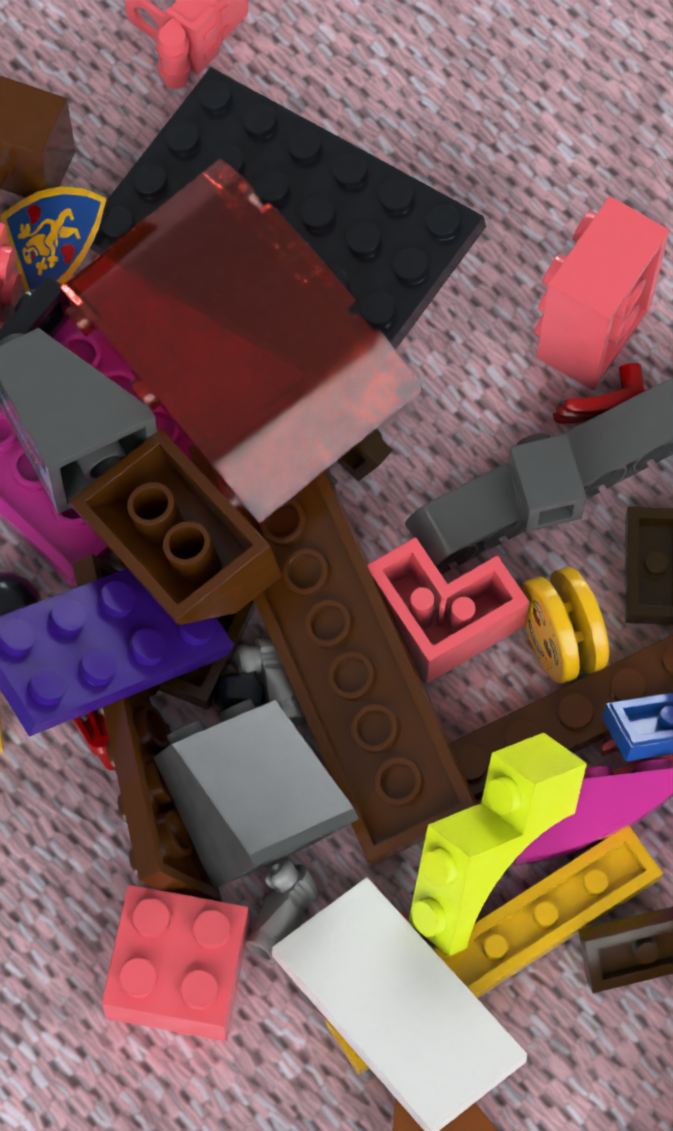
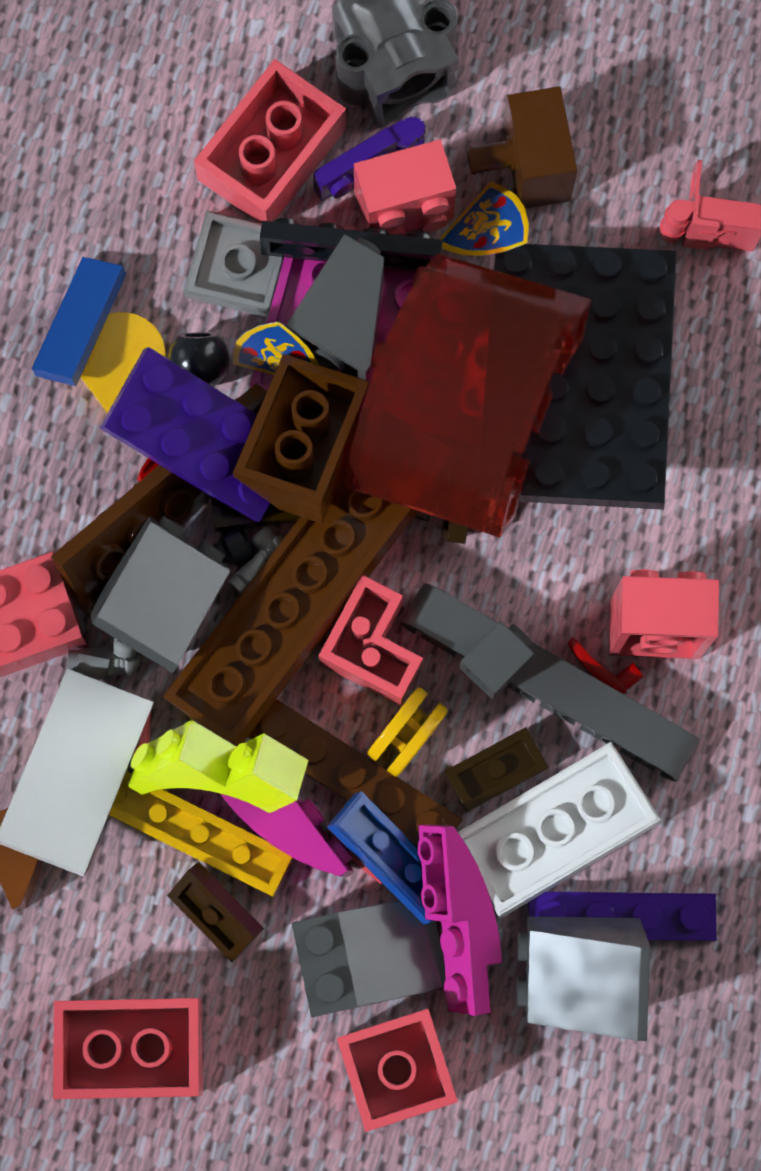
camera: 60 degrees right, 10 degrees up
(48, 518) = (264, 346): none -> sticker

